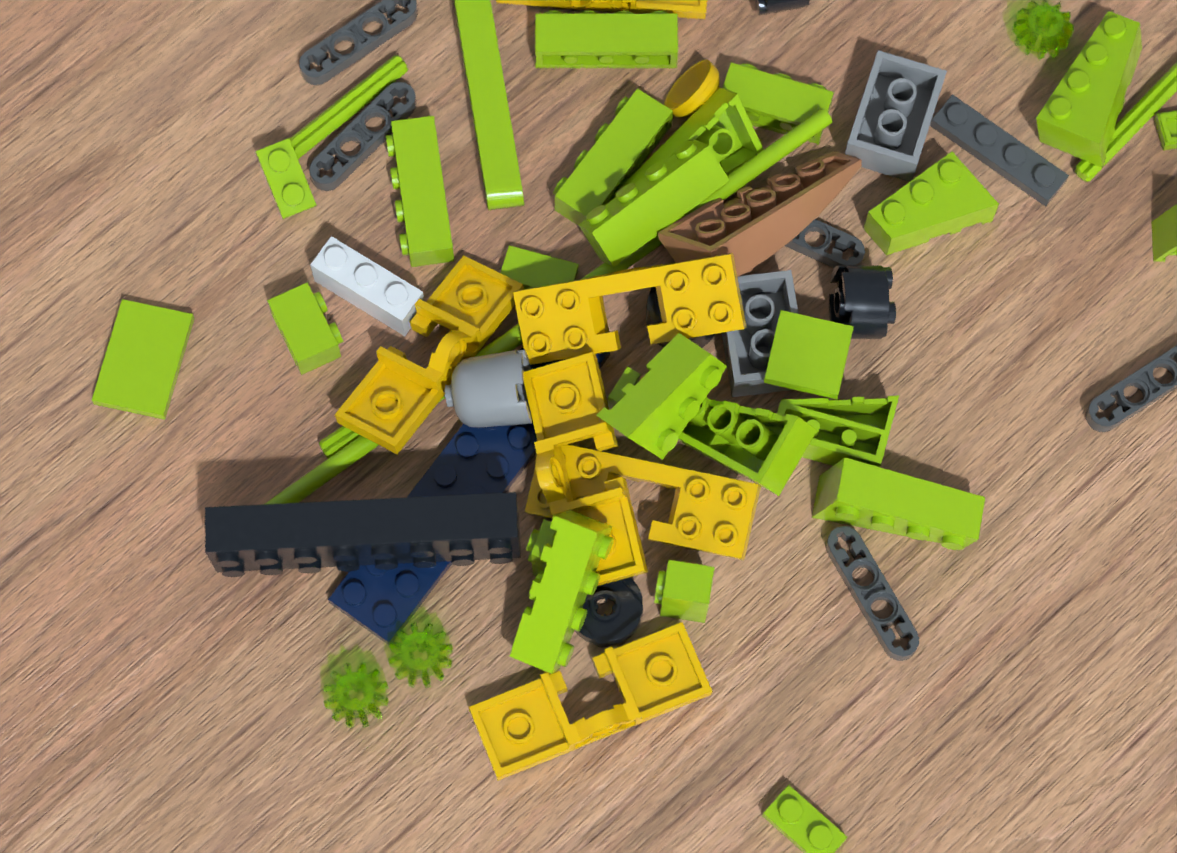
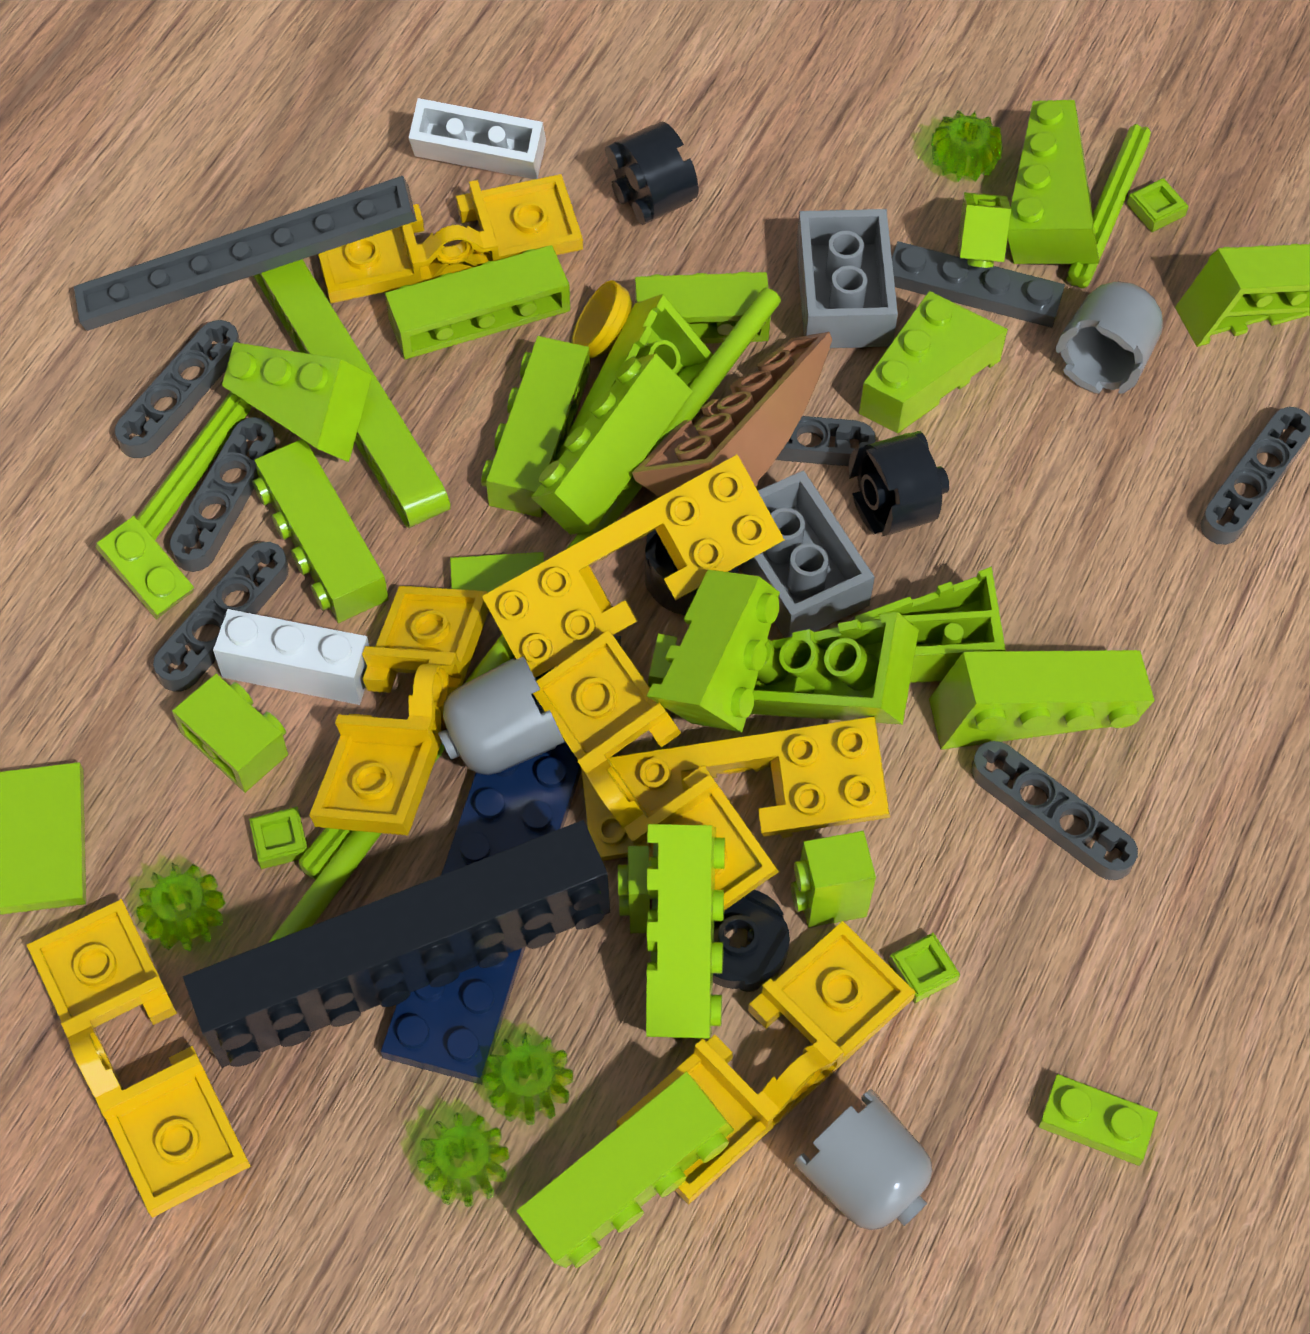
camera: 20 degrees left, 10 degrees down
(168, 598) = (168, 1123): none -> yellow plate
(215, 438) = (161, 911): none -> clear neon green gear
(312, 418) = (278, 837): none -> lime tile
(325, 229) = (213, 611): none -> dark grey beam
(442, 82) = (303, 392): none -> lime wedge
(460, 744) = (625, 1172): none -> lime brick
(627, 801) = (870, 1166): none -> light grey cylinder
(729, 675) = (924, 967): none -> lime tile
(808, 354) = (867, 554): lime tile -> none
(1018, 110) = (983, 229): none -> lime brick
(1081, 235) = (1111, 337): none -> light grey cylinder

